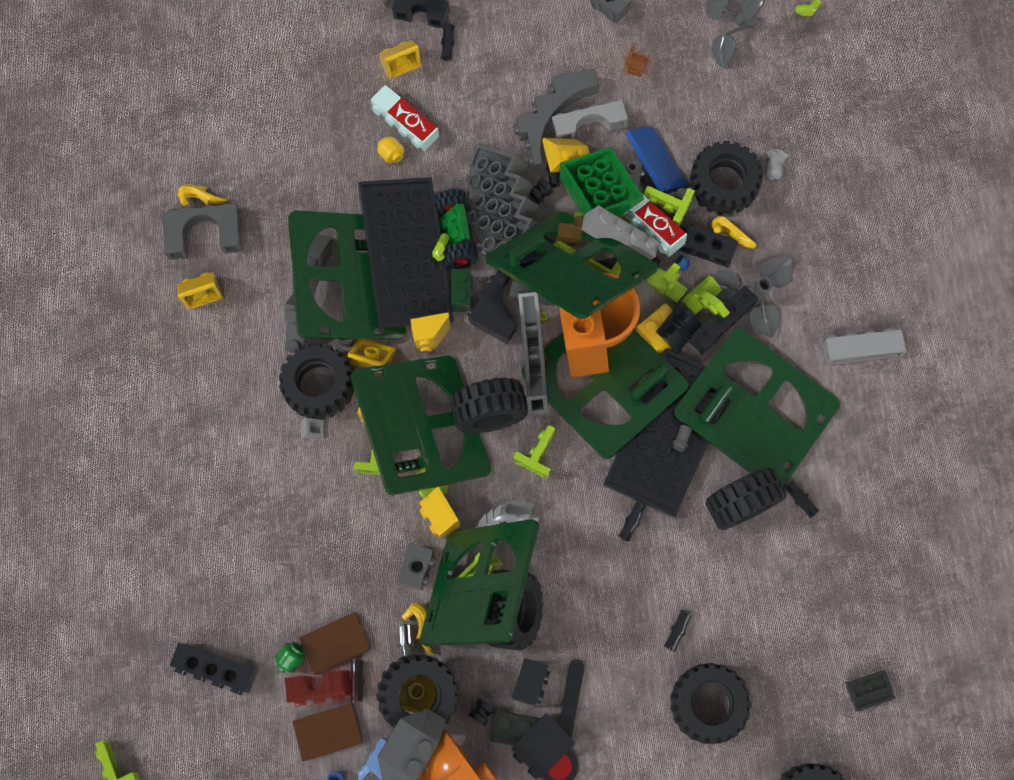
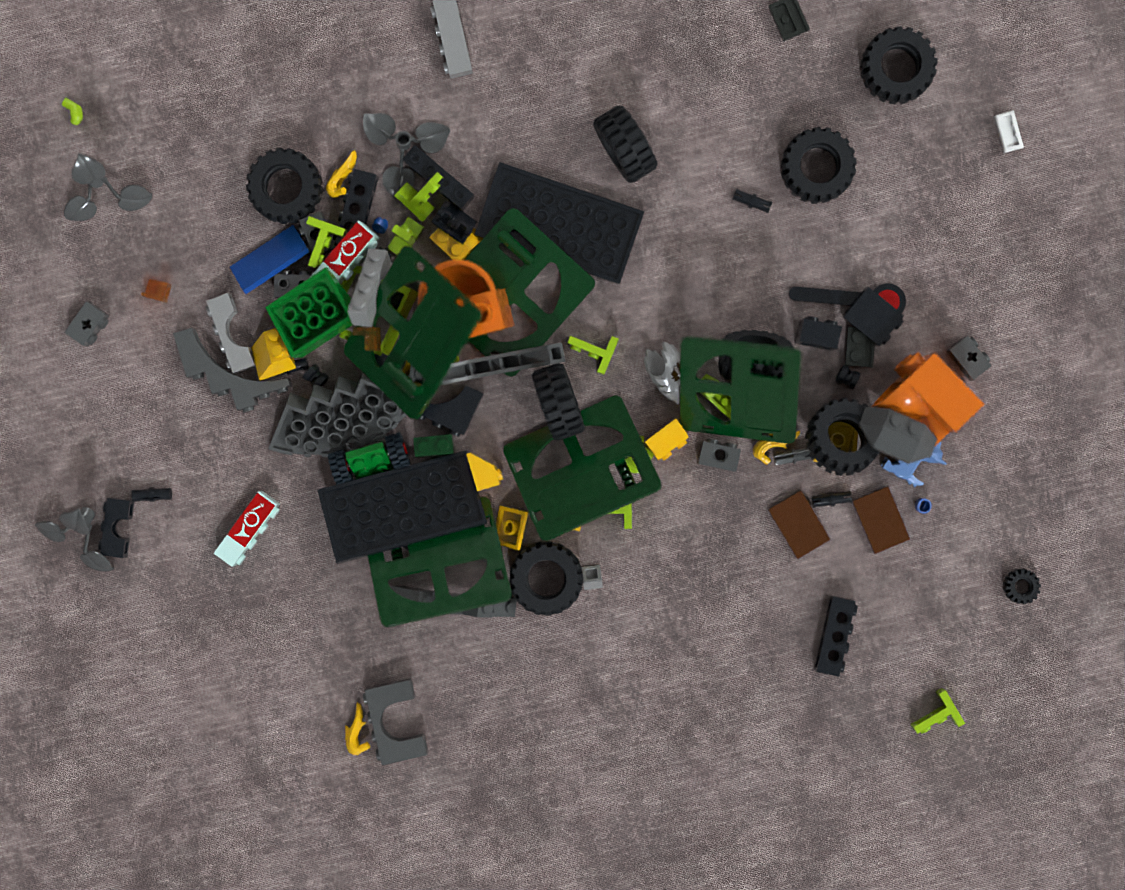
camera: 100 degrees left, 15 degrees up
(199, 290) = (461, 713): yellow slope -> none
(290, 657) = (817, 564): green head -> none
(335, 686) = (847, 549): clear red arch -> none
(390, 150) = (285, 538): yellow head -> none
(400, 59) = (178, 542): yellow slope -> none
(440, 247) = (397, 472): lime arm -> none
(632, 521) = (652, 252): black pin -> none
(682, 438) = (567, 210): dark grey pin -> none
(748, 427) = (548, 145): dark green door -> none
(775, 165) = (263, 136): light grey animal -> none
(801, 499) = (613, 91): black pin -> none

